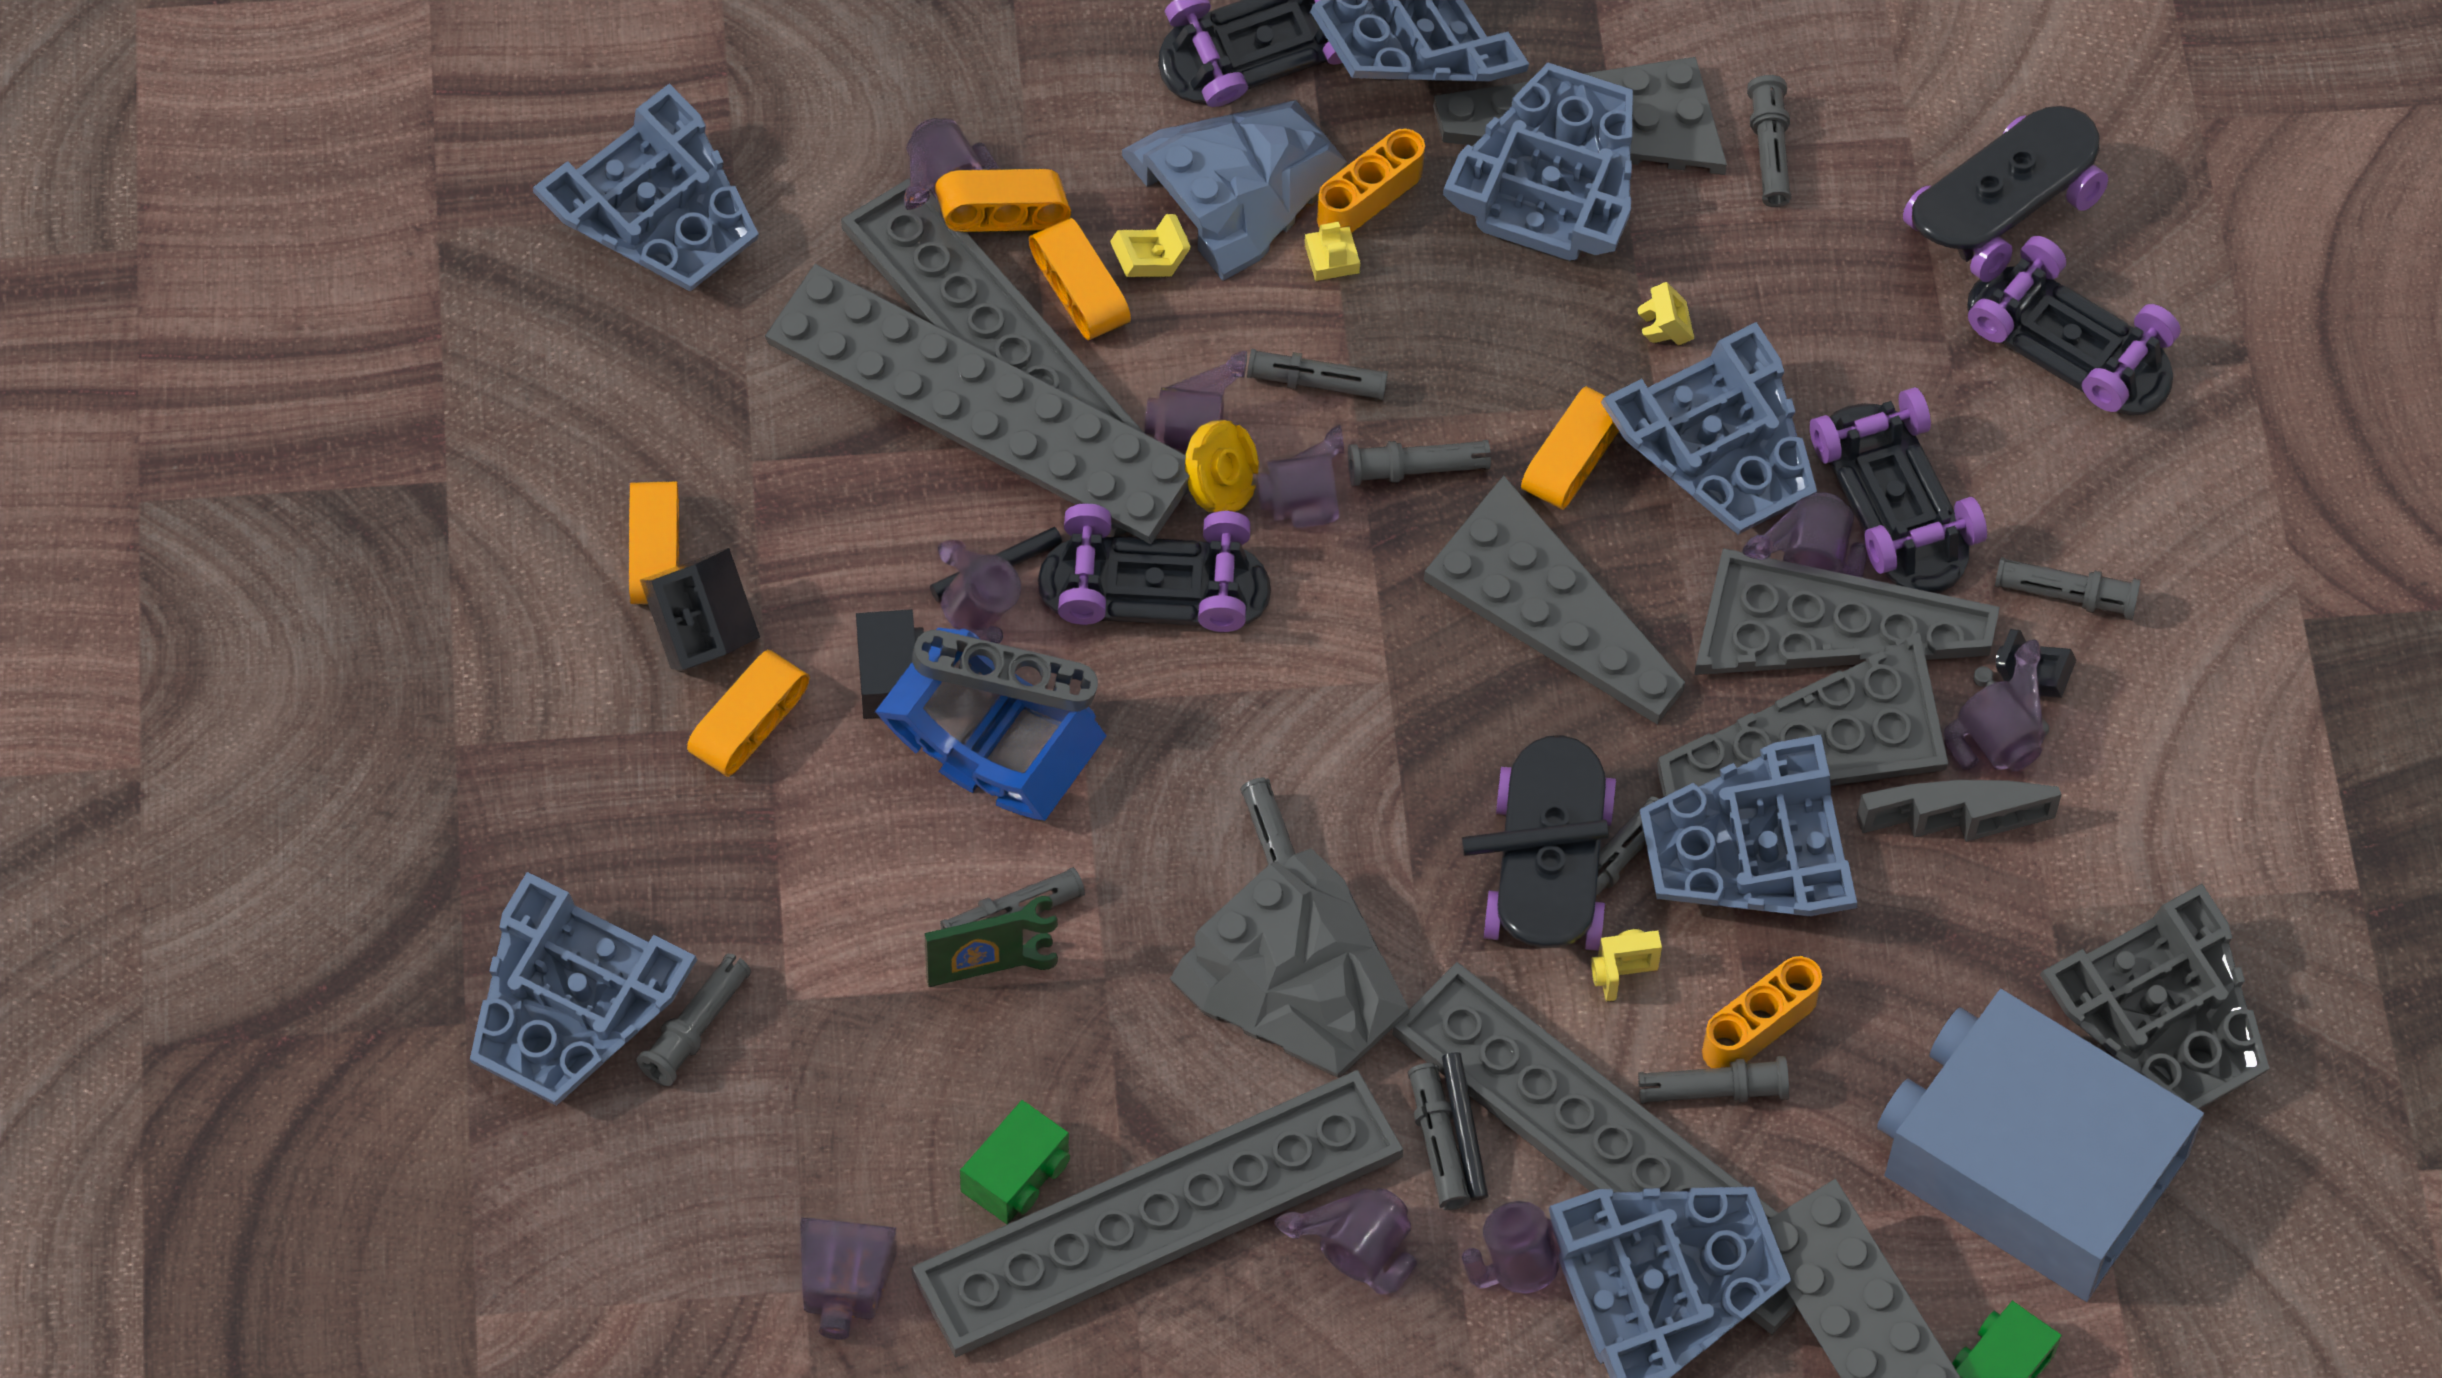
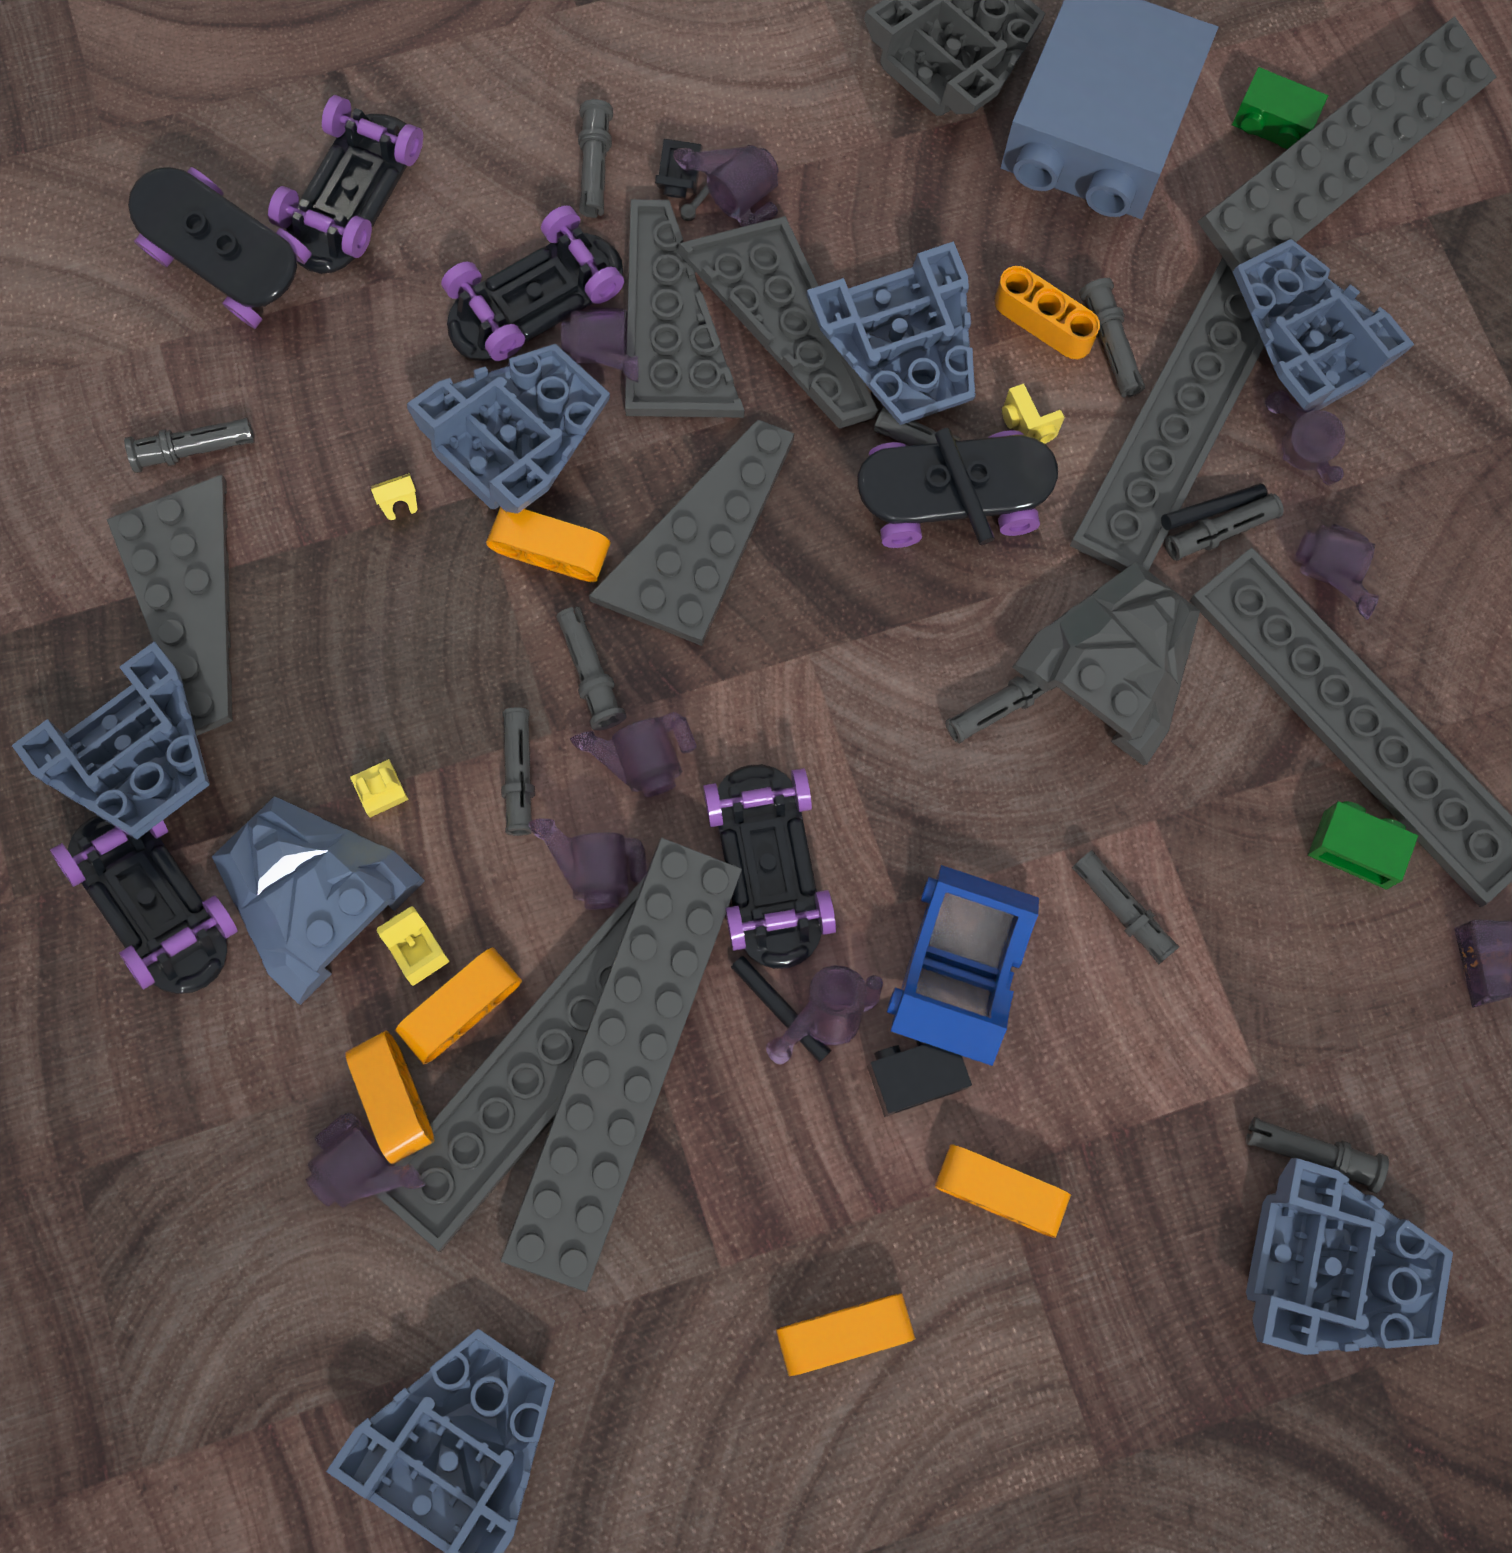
camera: 105 degrees left, 15 degrees up
(700, 610) = (923, 1262): black slope -> none
(990, 945) = (1187, 907): dark green flag -> none
(1006, 662) = (943, 950): dark grey beam -> none
(1221, 466) = (648, 826): yellow tile -> none
(1378, 165) = (286, 752): light orange beam -> none
(1552, 166) = (260, 601): sand blue wedge -> none
(1973, 805) = (820, 199): dark grey slope -> none

